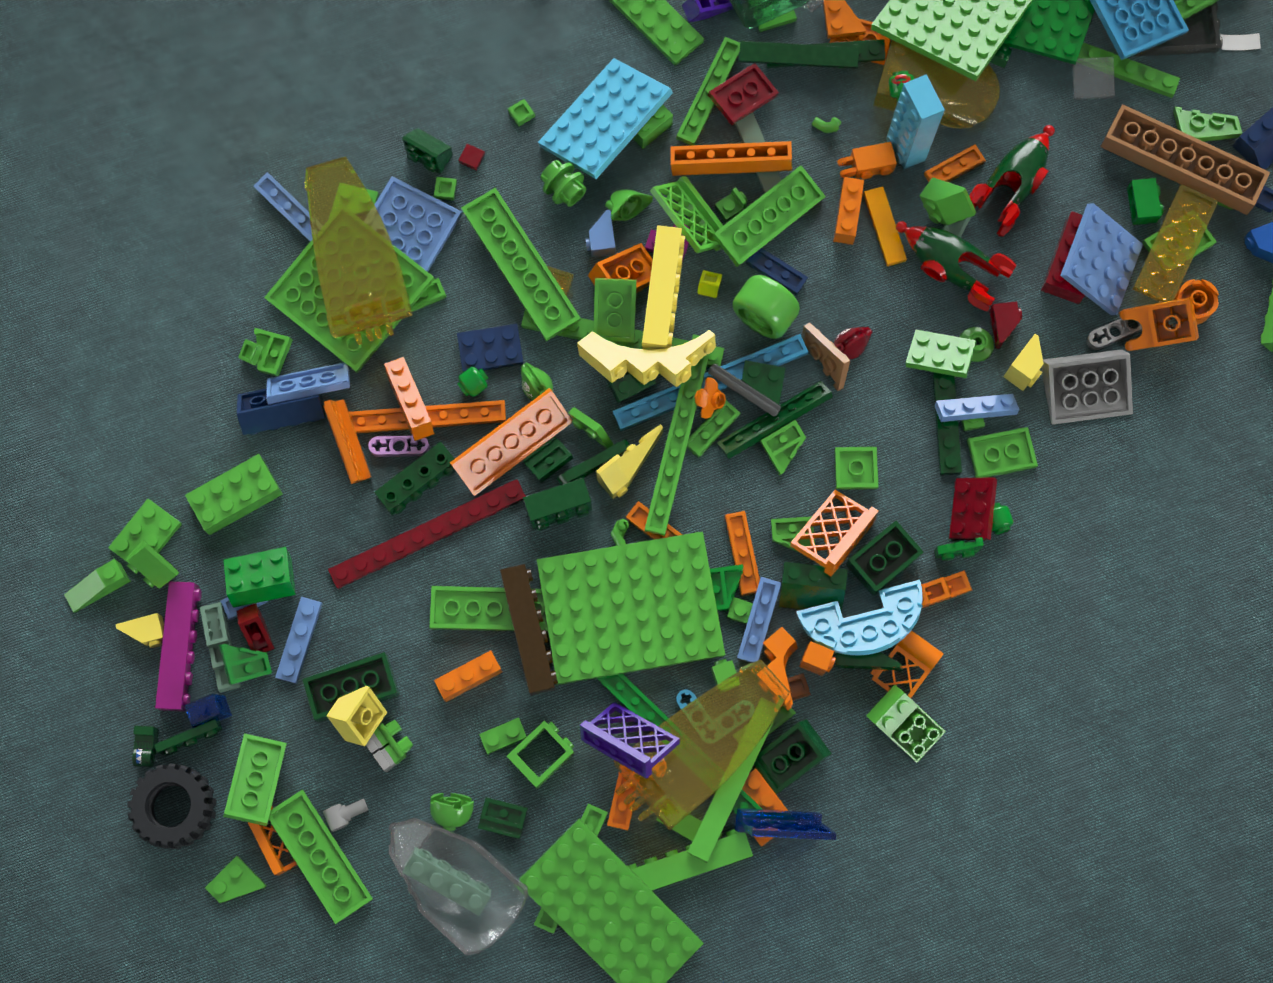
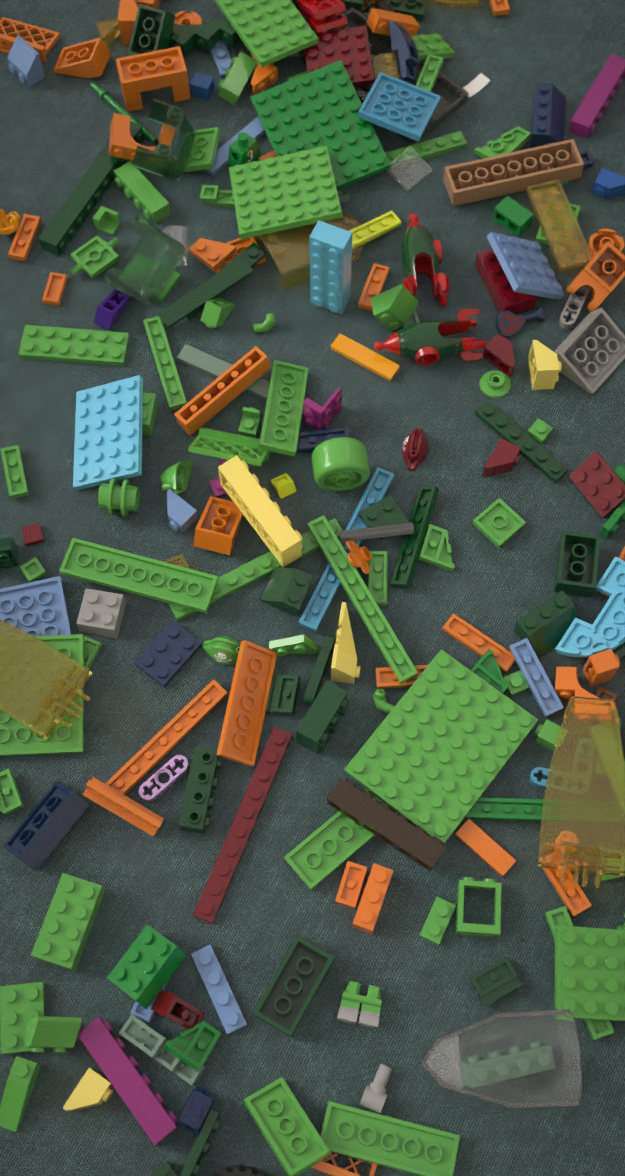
camera: 40 degrees left, 10 degrees down
(308, 383) = (53, 789): medium blue tile -> none
(357, 715) = (321, 1002): light yellow slope -> none
(409, 399) = (143, 735): brick -> none
(451, 811) = (455, 1010): bright green cylinder -> none
(463, 651) = (351, 884): none -> orange plate
(466, 270) = (101, 613): none -> light grey brick
(472, 381) = (178, 685): green head -> none
(503, 89) = (14, 472): none -> bright green plate
(521, 112) = (42, 477): bright green tile -> none
(590, 703) = (485, 847): none -> orange tile
(615, 309) = (238, 549): bright green plate -> none
(618, 747) = (534, 848): dark purple fence -> none
(643, 364) = (295, 568): light yellow arch -> none
(743, 94) = (190, 345): dark red plate -> none
(786, 529) = (502, 600): bright green wing -> none
(795, 79) = (216, 312): none -> bright green slope
(795, 252) = (321, 416): none -> magenta bracket
(832, 359) = (416, 465): medium nougat wing -> none
(847, 543) = (545, 573): fence -> none
(848, 210) = (332, 364): orange brick -> none
(869, 161) = (316, 324): orange hinge -> none
(896, 82) = (297, 255): green head -> none
(913, 415) = (502, 458): none -> dark red slope
(941, 353) = (482, 404): plate -> none
(976, 407) = (538, 419): medium blue plate -> none
(989, 109) = (374, 228): none -> neon yellow tile
(1002, 453) = (580, 436): bright green tile -> none
(1040, 301) = (509, 323): none -> dark blue piece

